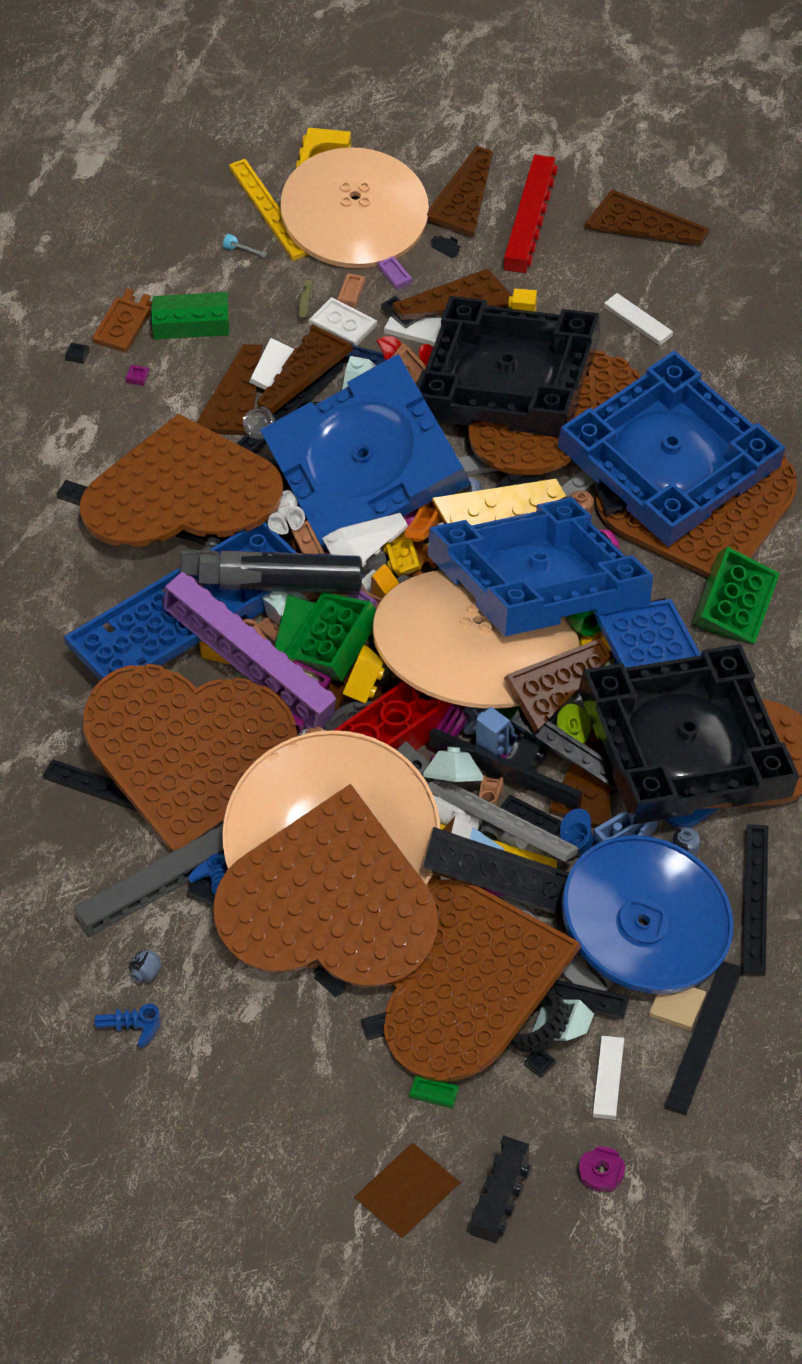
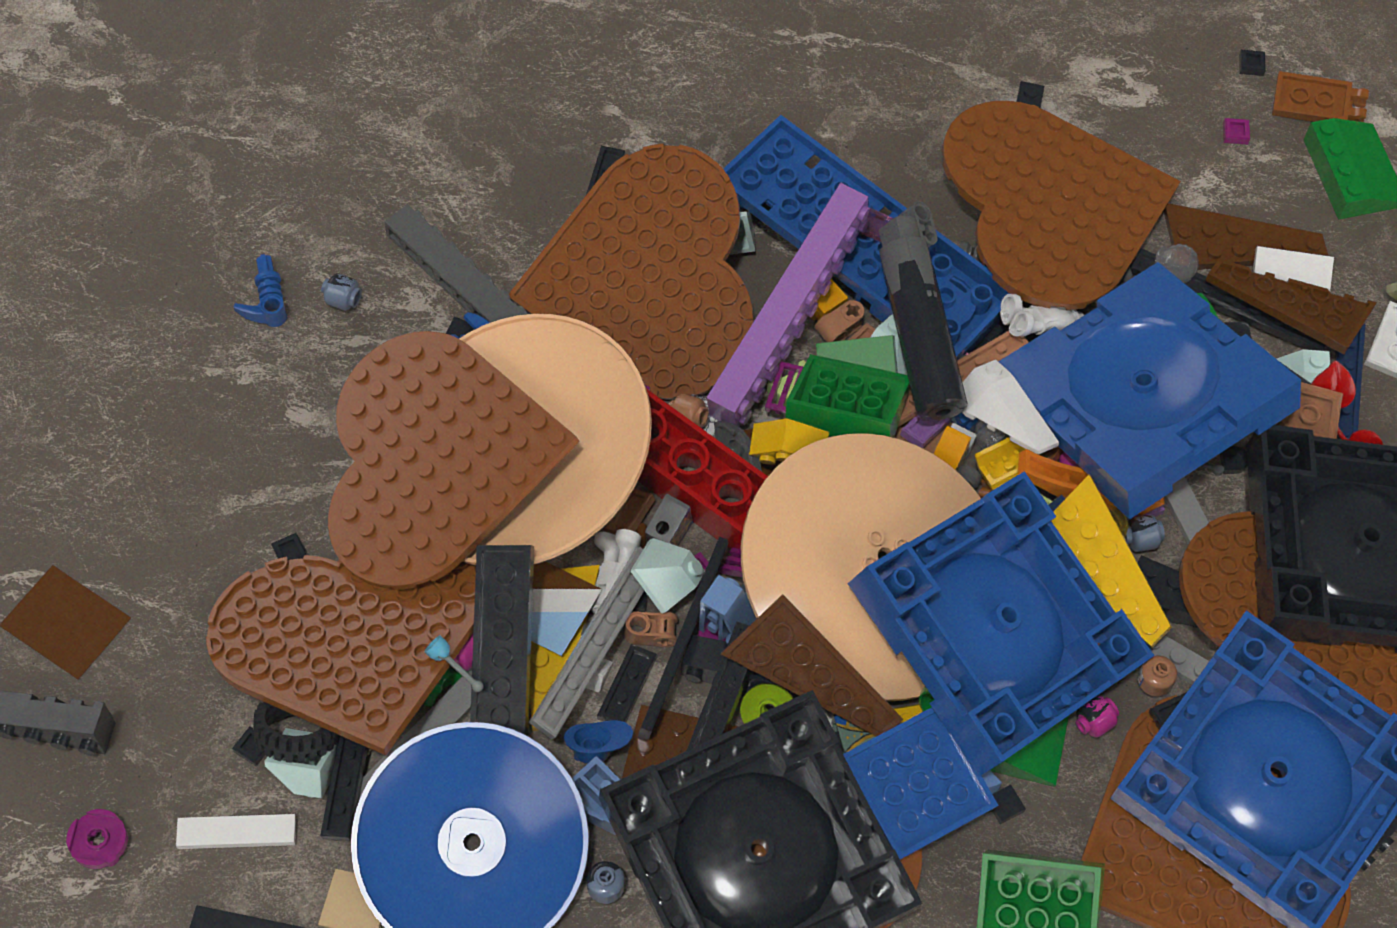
camera: 75 degrees right, 10 degrees up
(434, 1092) = (196, 631): green tile -> none
(505, 901) = (439, 650): none -> hinge

